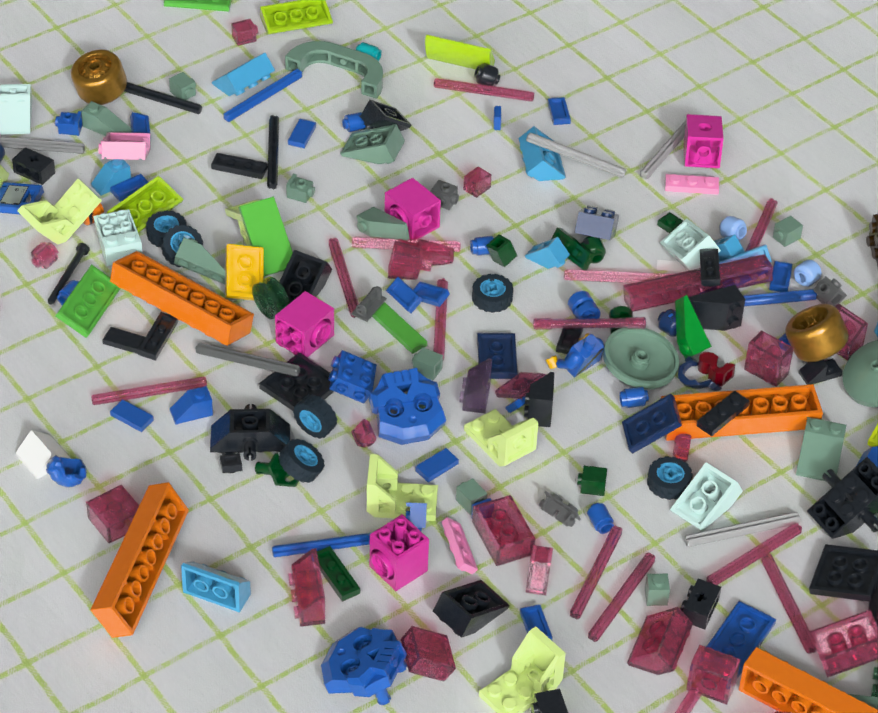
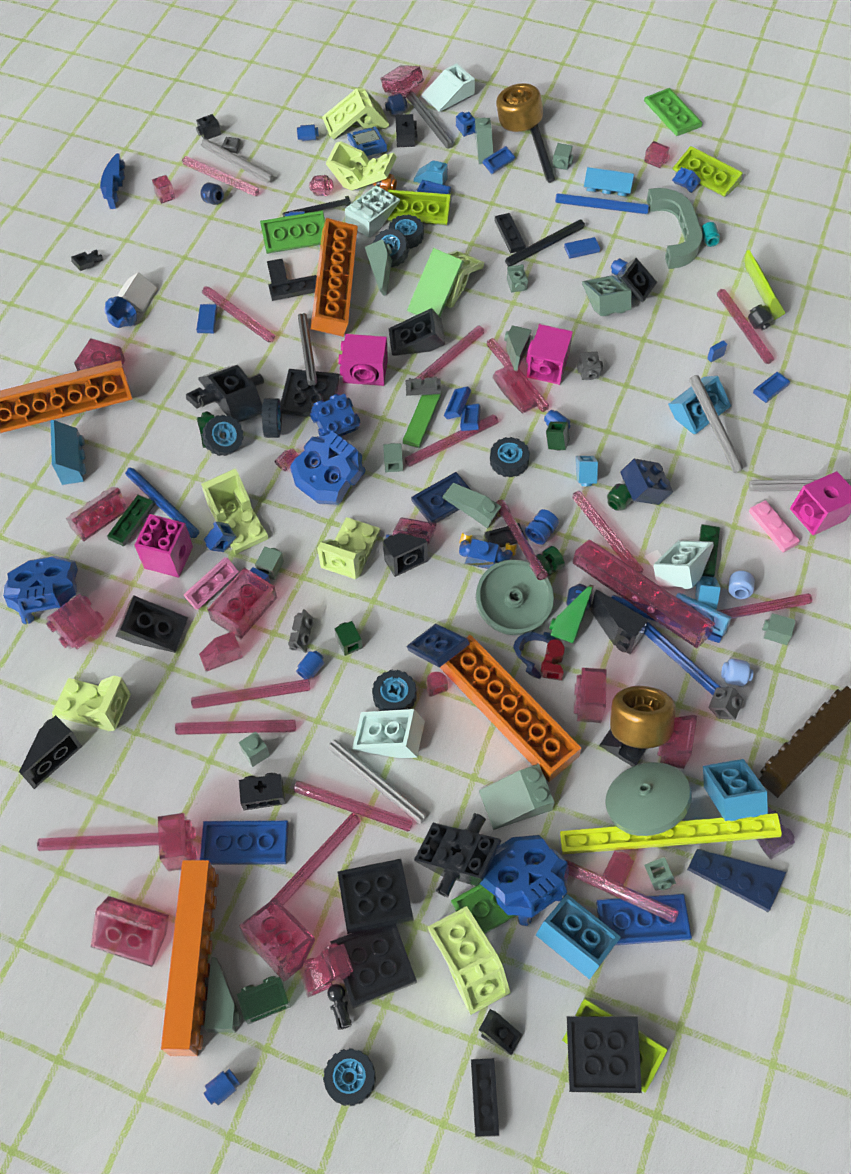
camera: 60 degrees right, 15 degrees up
(125, 145) = (461, 160): bright pink window -> none
(192, 406) = (239, 345): blue slope -> none
(243, 270) = (391, 295): yellow tile -> none
(270, 297) = (376, 323): clear green wheel -> none
(292, 31) = (687, 179): none -> blue bracket
(407, 262) = (490, 382): clear pink torso -> none
(437, 465) = (291, 523): blue tile -> none
(477, 182) = (627, 378): clear pink brick -> none
(477, 388) = (388, 504): clear purple slope -> none
(529, 335) = (473, 504): none -> sand green slope
(534, 616) = (166, 681): blue tile -> none
(578, 252) = (605, 481): dark green plate -> none
(633, 397) = (468, 617): blue brick -> none
(661, 641) = (197, 783): clear pink slope -> none
(709, 267) = (654, 589): black plate -> none
(723, 413) = (483, 692): black plate -> none
(781, 276) = (718, 654): blue tile -> none

